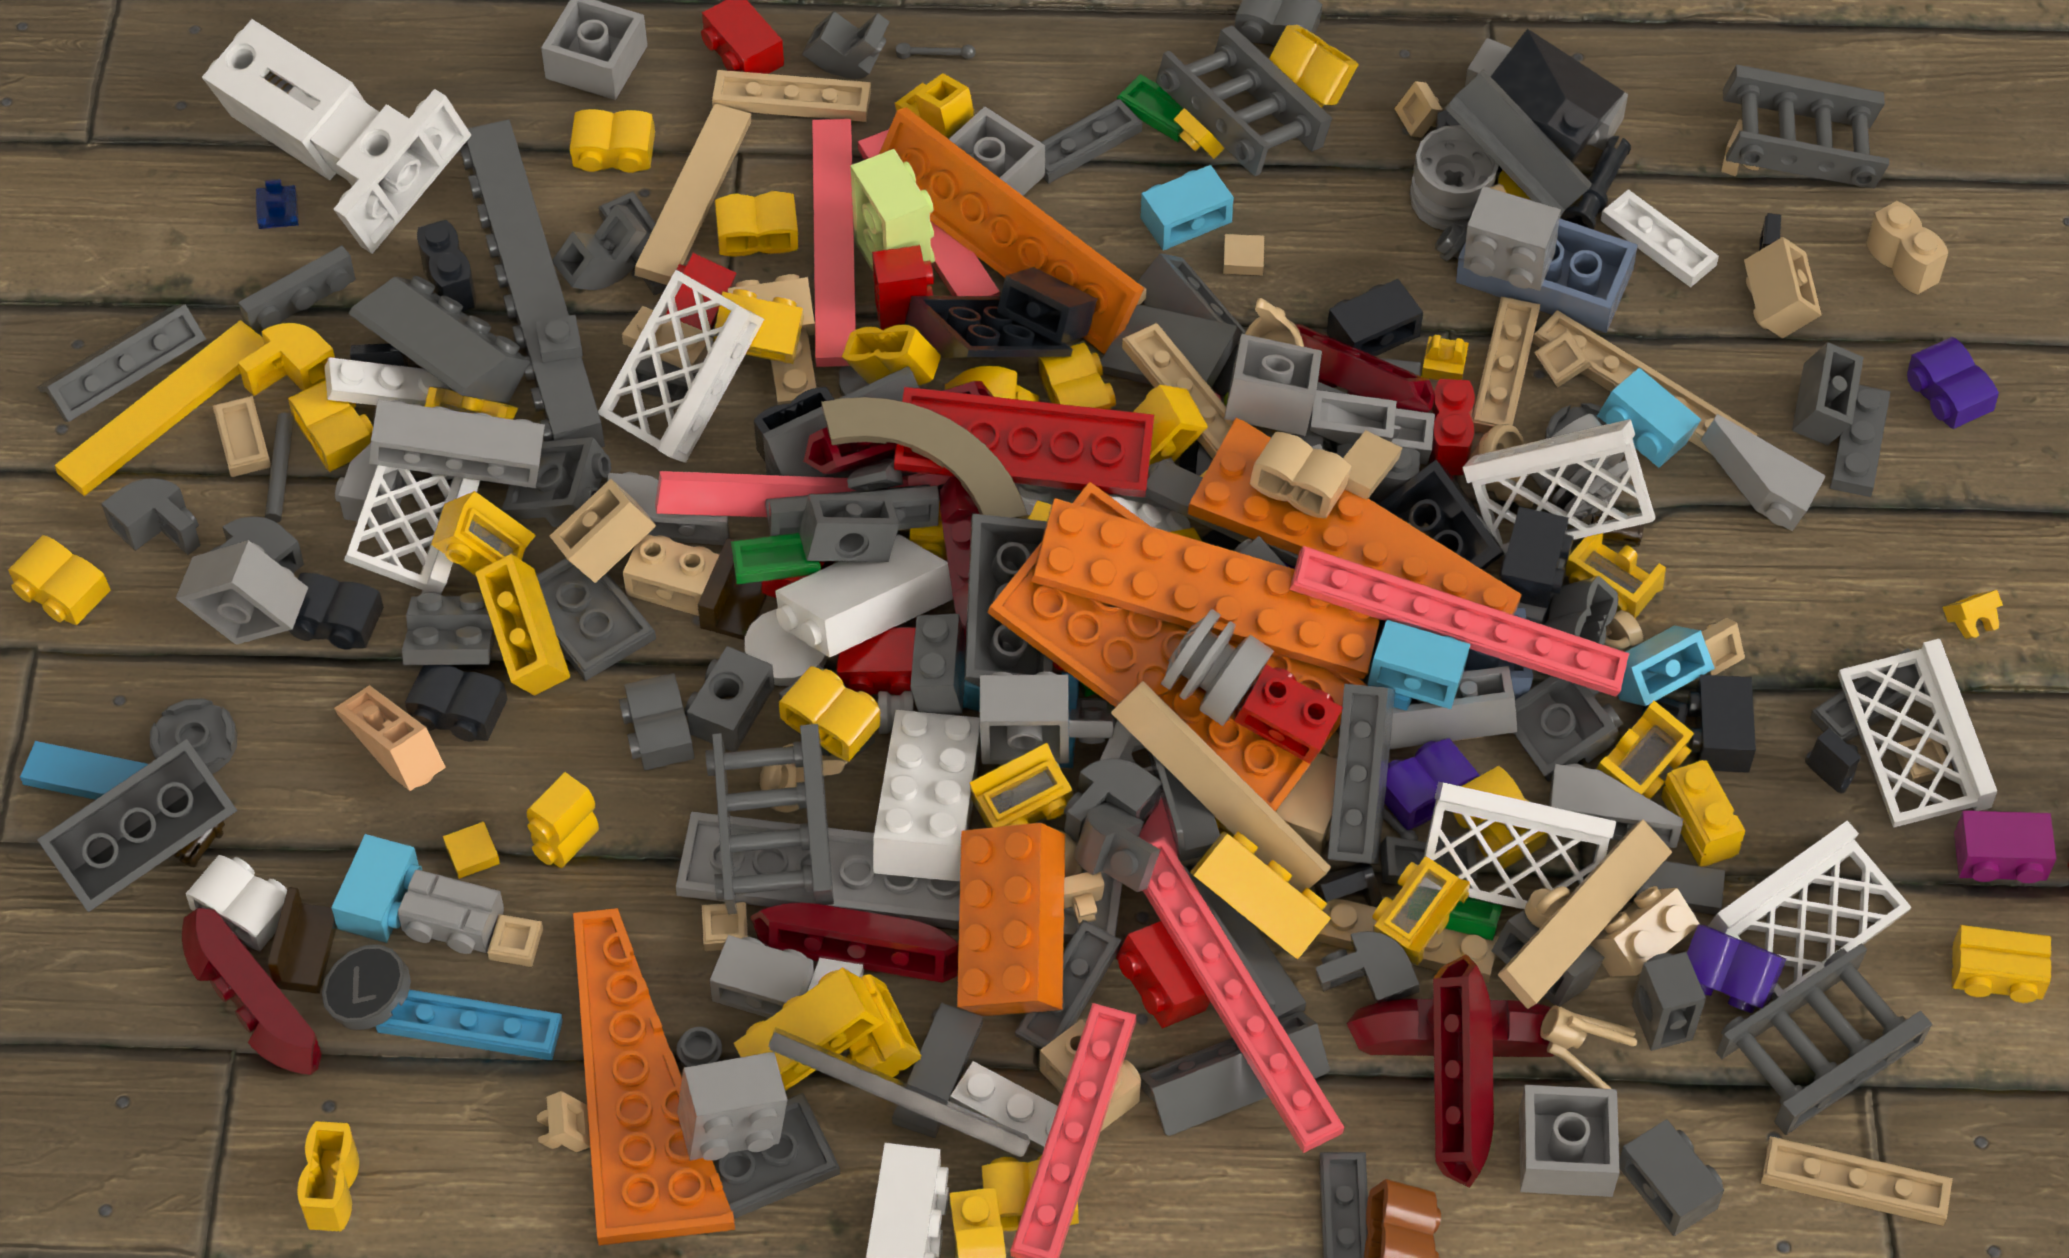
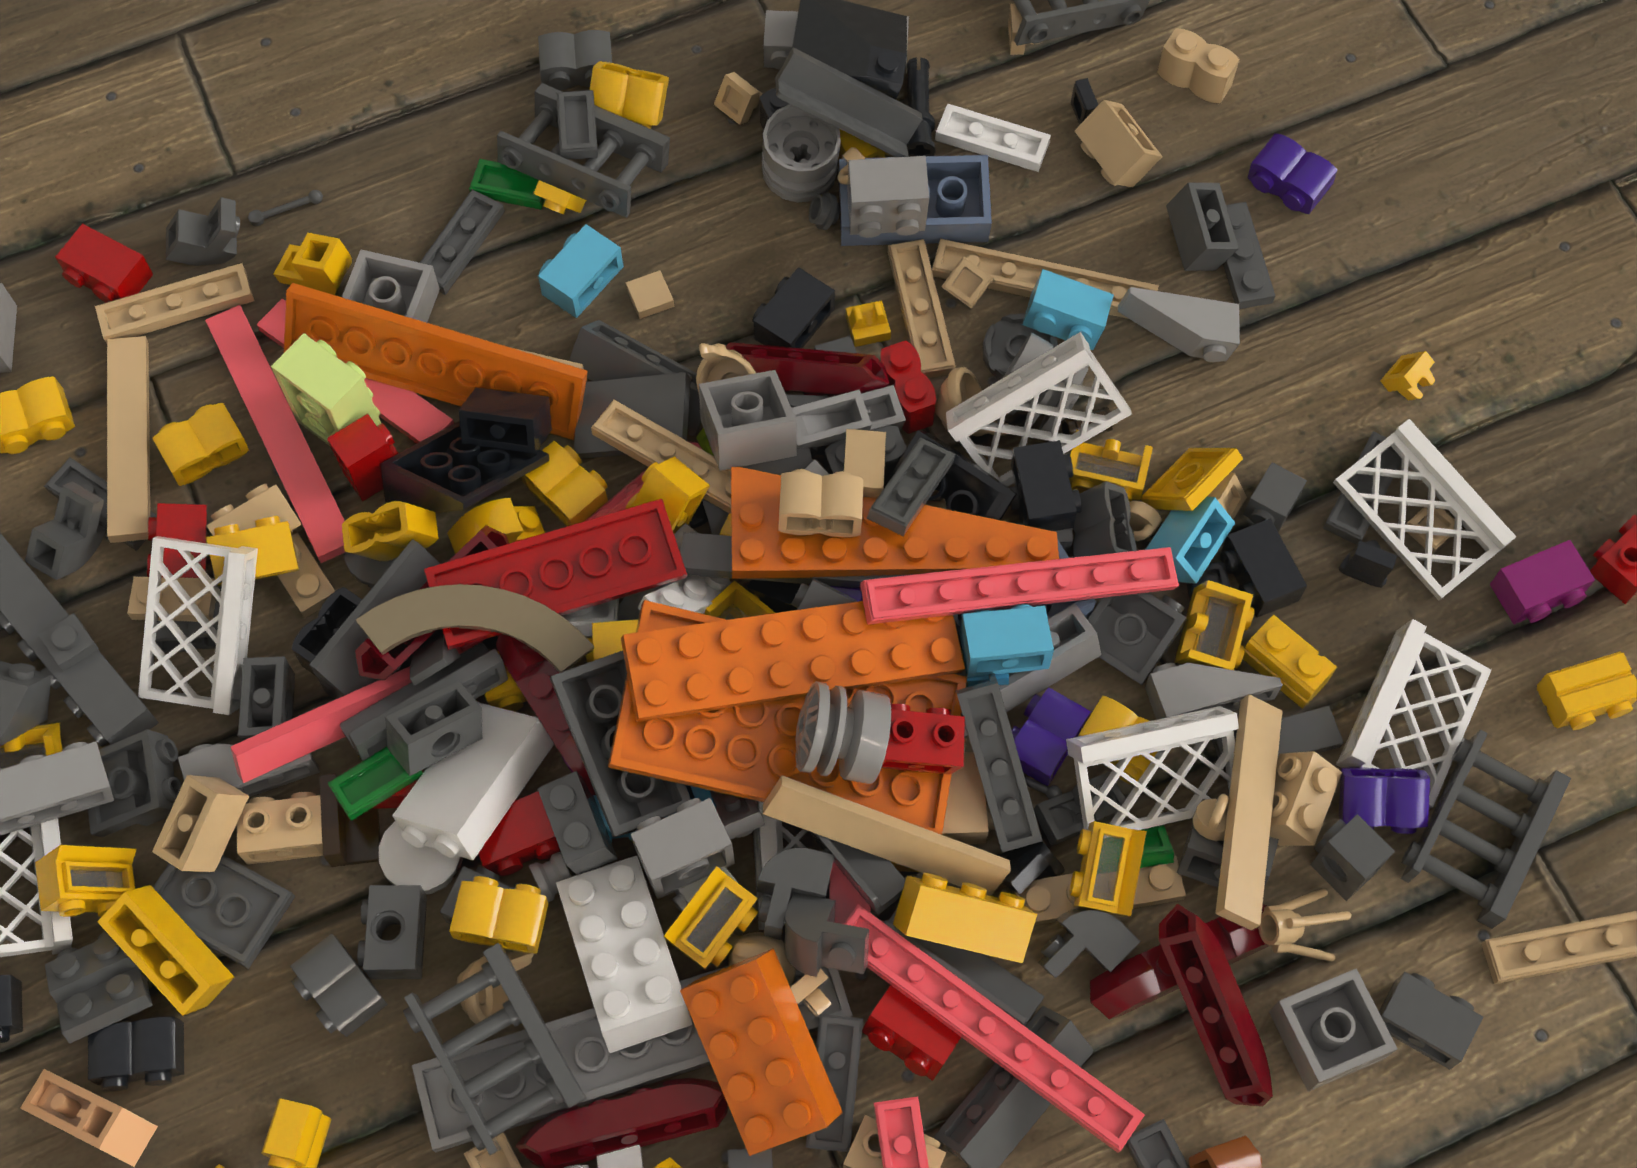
camera: 25 degrees left, 10 degrees up
(714, 447) = (265, 695): none -> dark grey brick
(1246, 72) = (577, 124): none -> dark grey tile
(1399, 499) = (911, 486): none -> dark grey tile
(1691, 611) = (1191, 478): none -> yellow tile
(1773, 664) = (1275, 496): none -> dark grey brick

